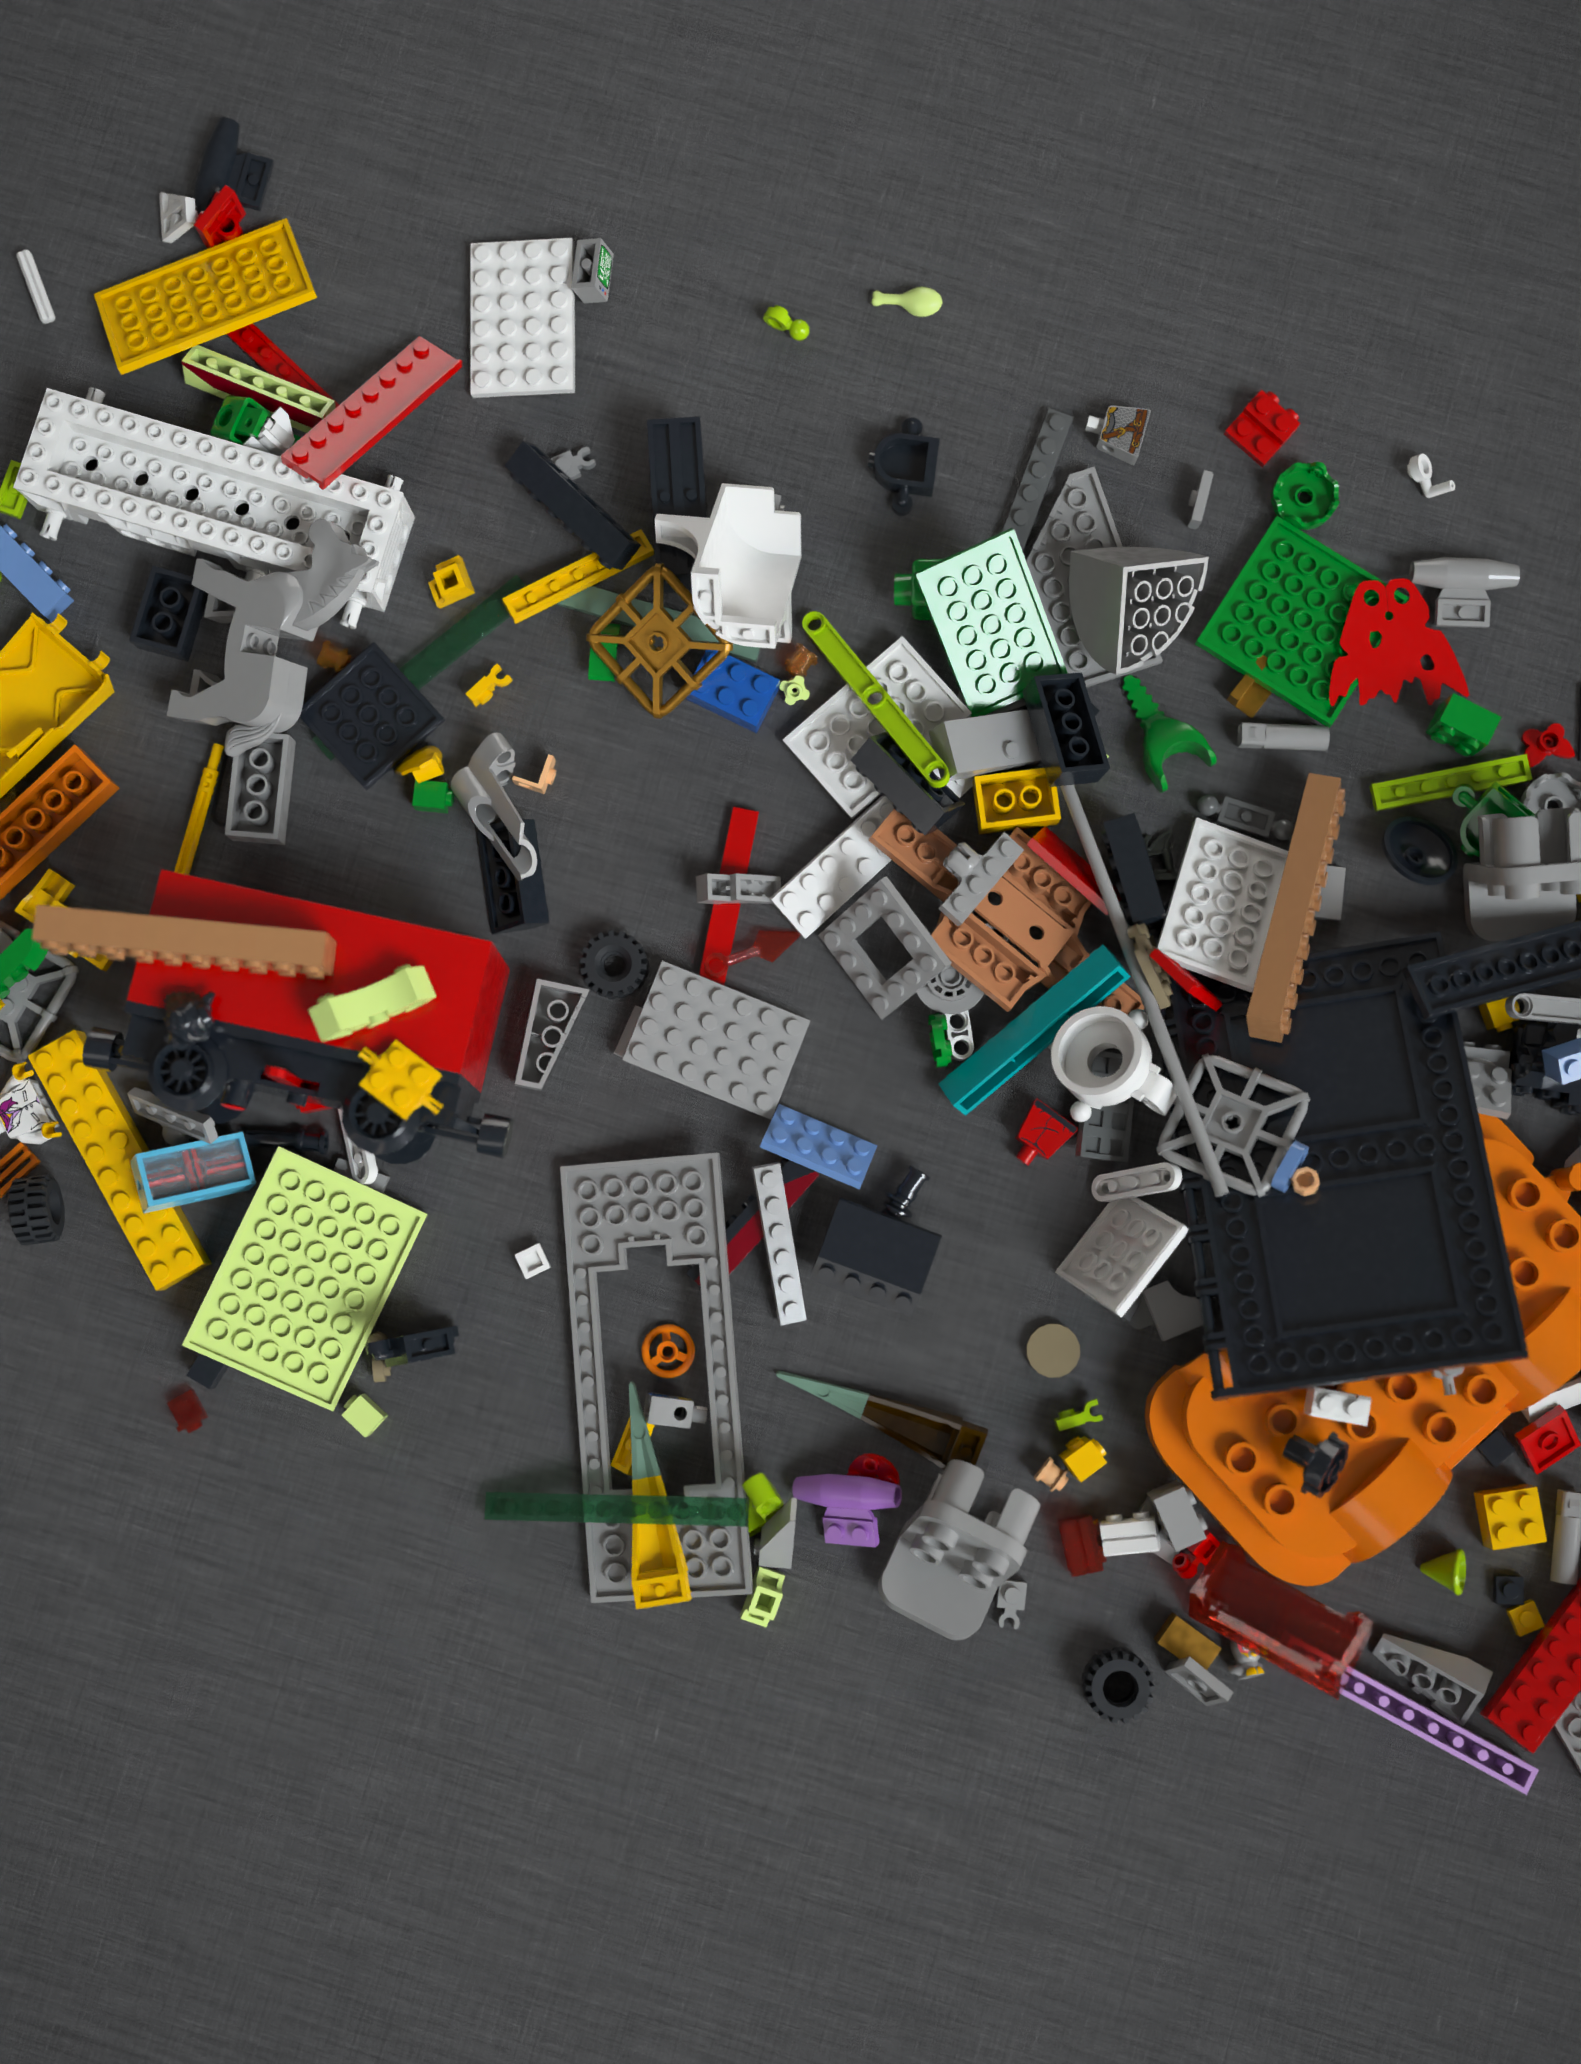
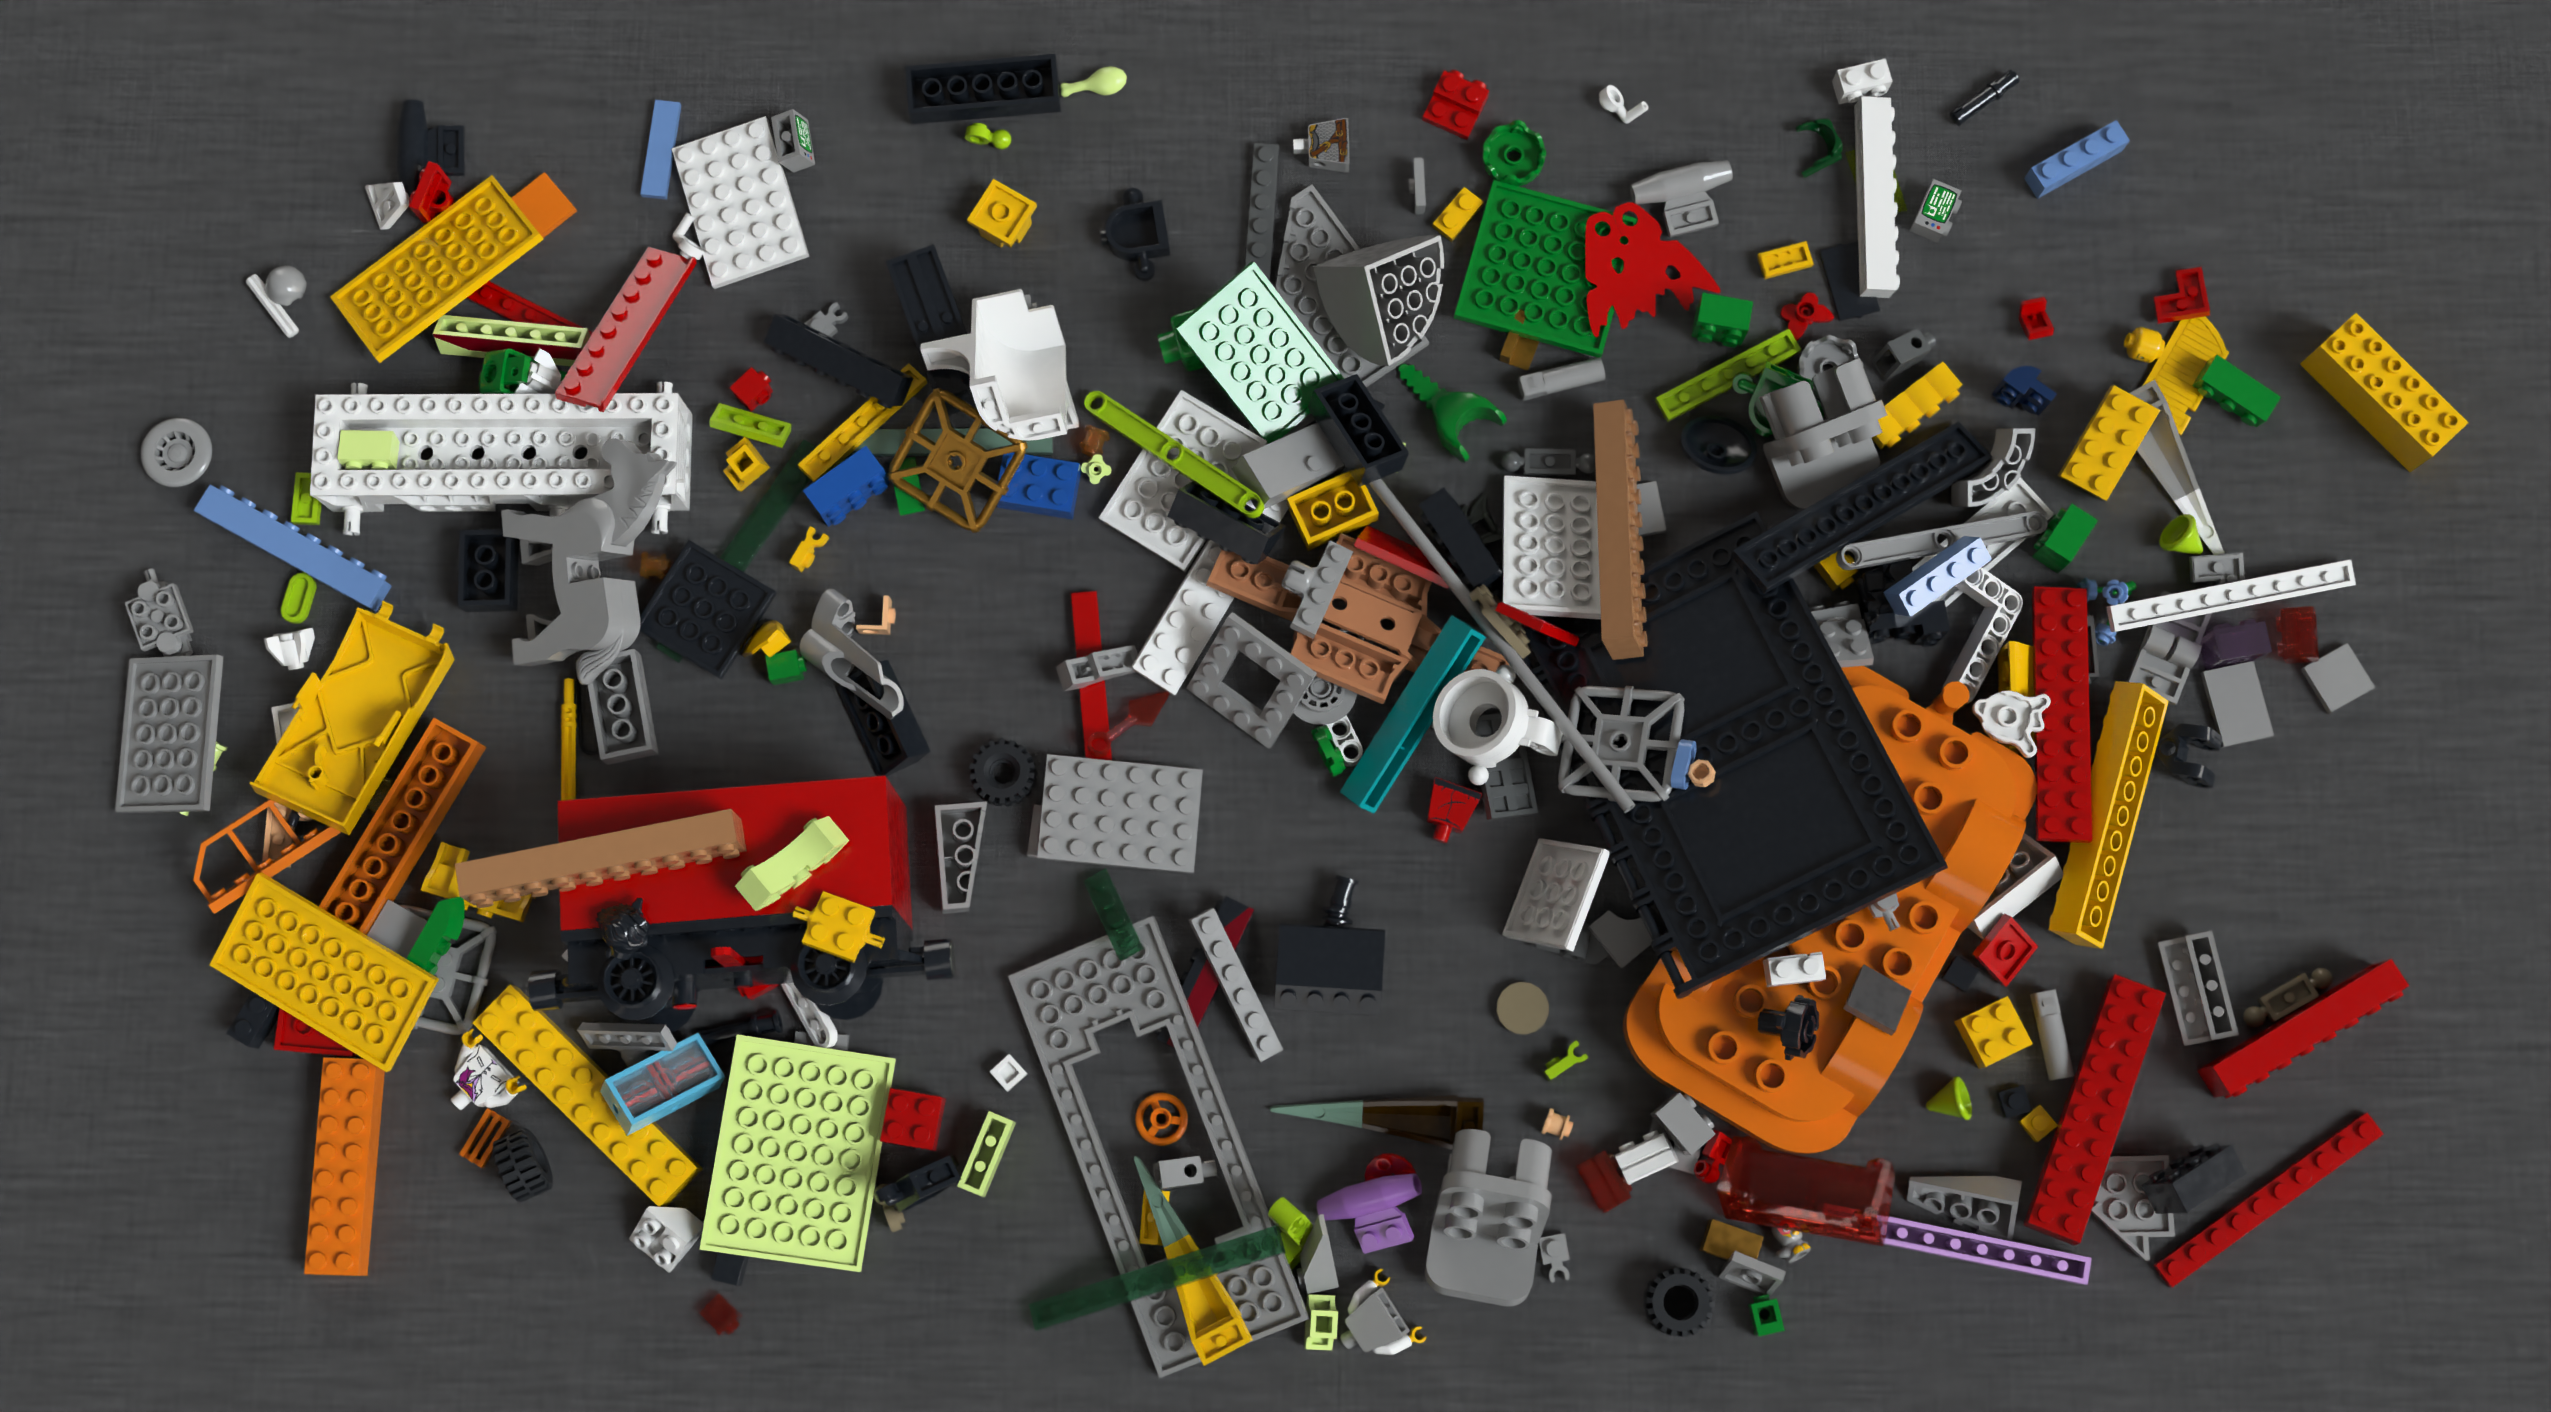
camera: 15 degrees left, 5 degrees down
(53, 269) = (285, 285): none -> light grey hair
(83, 459) = (368, 450): none -> yellowish green brick
(157, 1318) = (666, 1234): none -> white slope
(328, 264) = (544, 204): none -> orange tile
(363, 1414) = (890, 1266): yellowish green brick -> none
(426, 1279) = (913, 1119): none -> red brick
(458, 241) = (659, 150): none -> medium blue tile
(458, 348) = (688, 248): none -> white plate
(467, 545) = (750, 425): none -> lime plate
(480, 509) = (752, 388): none -> red brick
(487, 1335) = (986, 1154): none -> yellowish green brick
(544, 635) = (847, 486): none -> blue brick
(680, 1139) = (1113, 914): none -> clear green plate
(777, 407) = (1002, 215): none -> yellow panel
(795, 273) = (983, 89): none -> black brick
(817, 1613) = (1376, 1322): none -> light grey torso
(818, 1146) = (1245, 883): medium blue plate -> none
(1083, 1457) = (1580, 1097): yellow brick -> none
(1136, 1182) = (1550, 825): white plate -> none
(1203, 1733) = (1772, 1323): none -> green brick
(1230, 540) = (1457, 214): none -> yellow plate
(1410, 1460) = (1877, 1000): none -> flat silver tile
(1543, 683) = (1785, 260): none -> yellow plate

